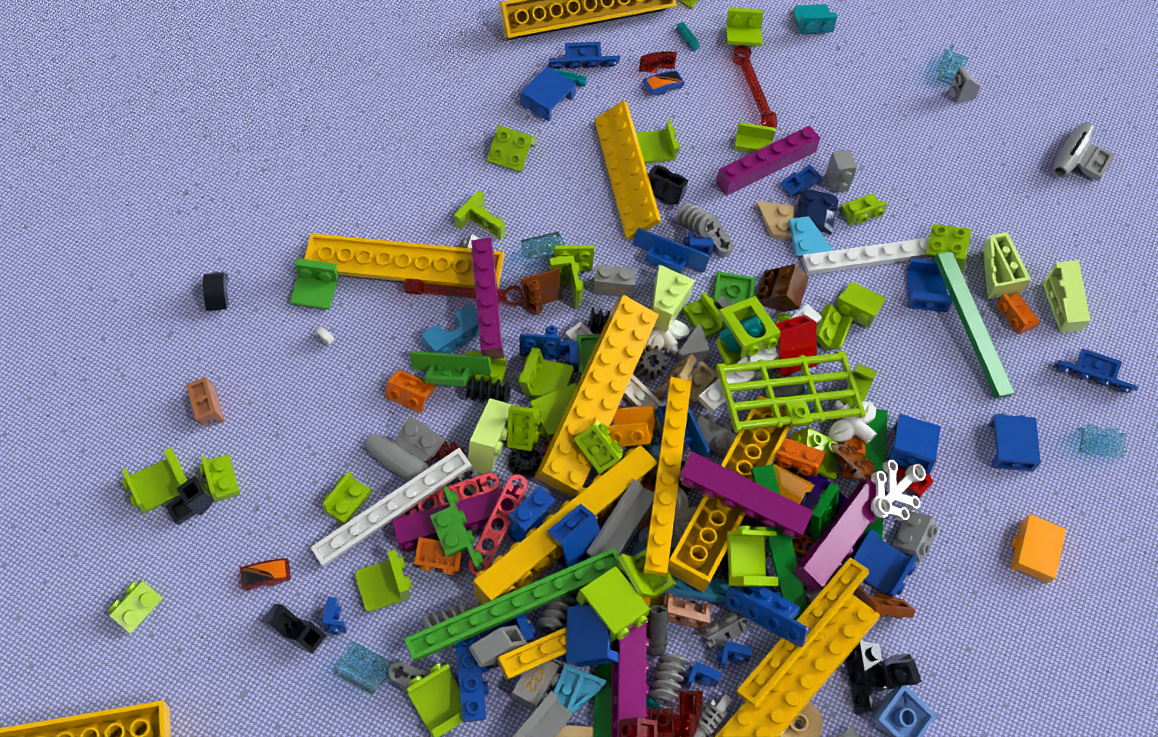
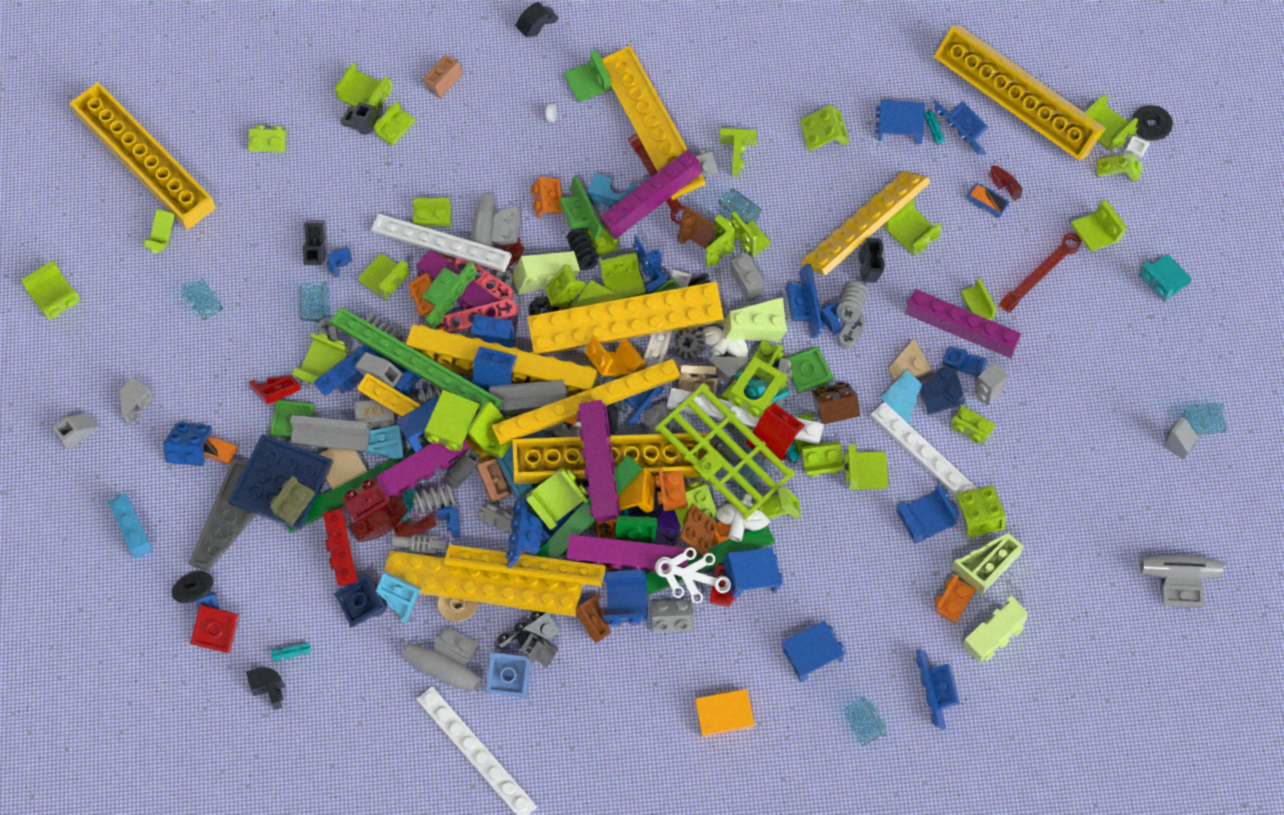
camera: 65 degrees right, 5 degrees up
(266, 572) = (342, 200): slope -> none
(599, 446) = (573, 341): lime bracket -> none
(688, 36) = (1058, 190): teal axle -> none
(737, 653) = (481, 527): blue bracket -> none
(974, 325) = (907, 564): tile -> none

